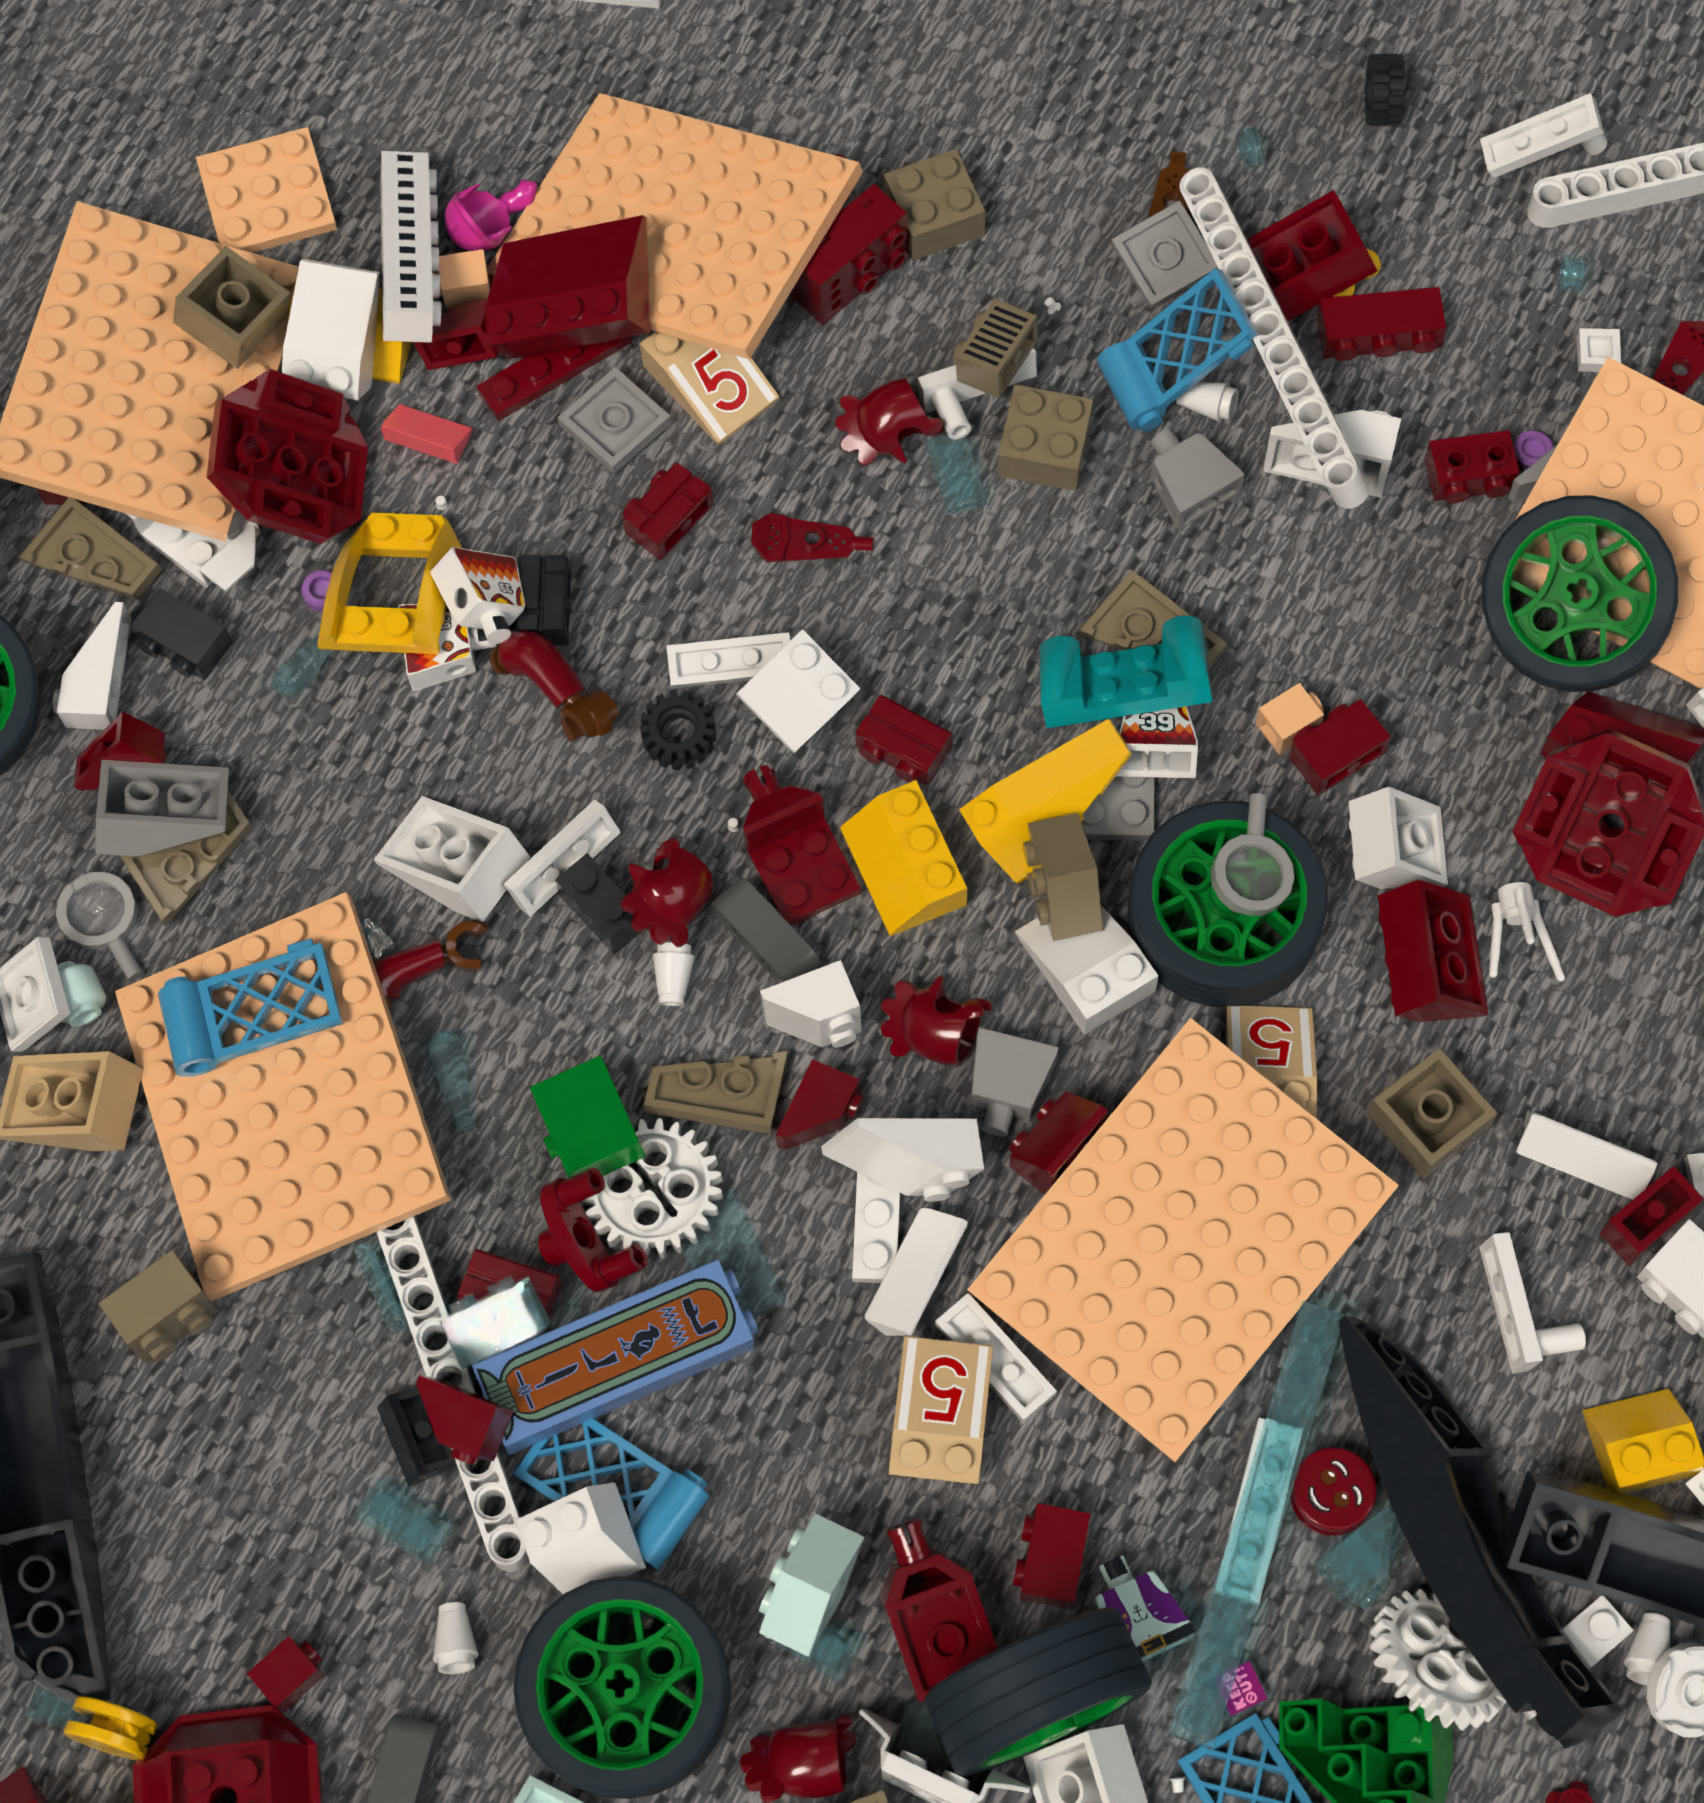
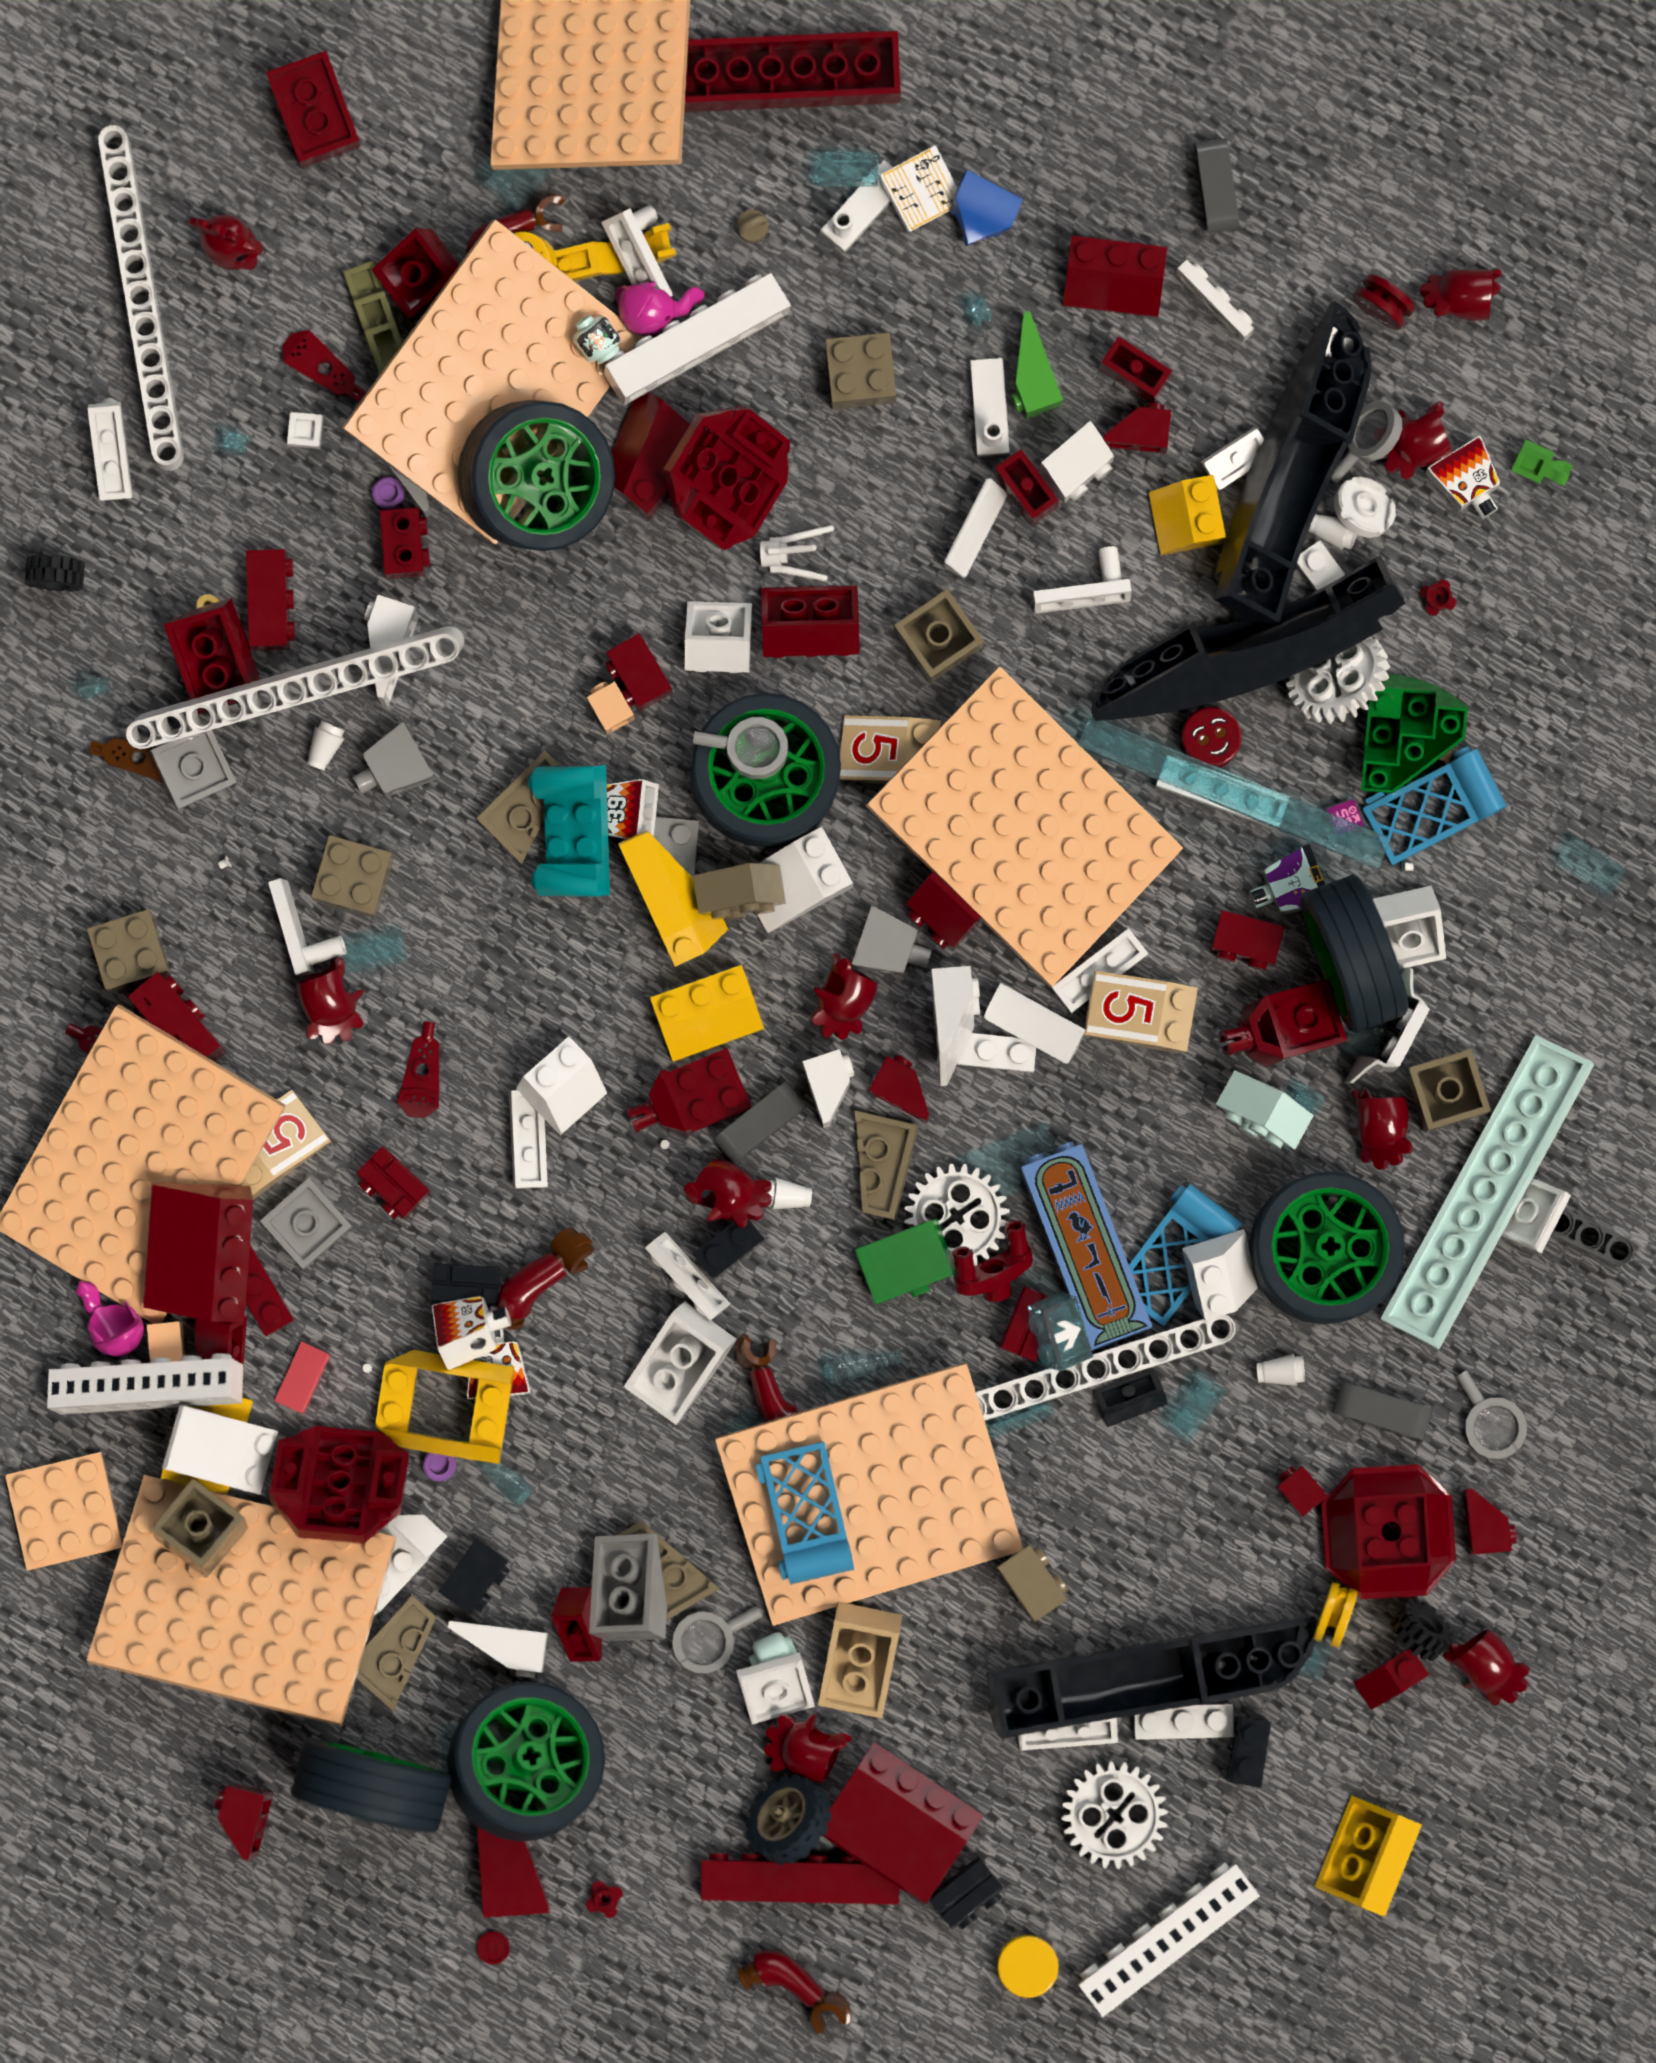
camera: 90 degrees left, 15 degrees up
(464, 1420) = (1133, 1354): dark red slope -> none
(672, 708) = (570, 1168): black tyre -> none
(903, 740) = (607, 1007): dark red brick -> none
(995, 347) = (281, 908): dark tan brick -> none
(1131, 373) = (311, 798): dark azure piece -> none
(1360, 1563) = (1263, 723): clear light blue slope -> none

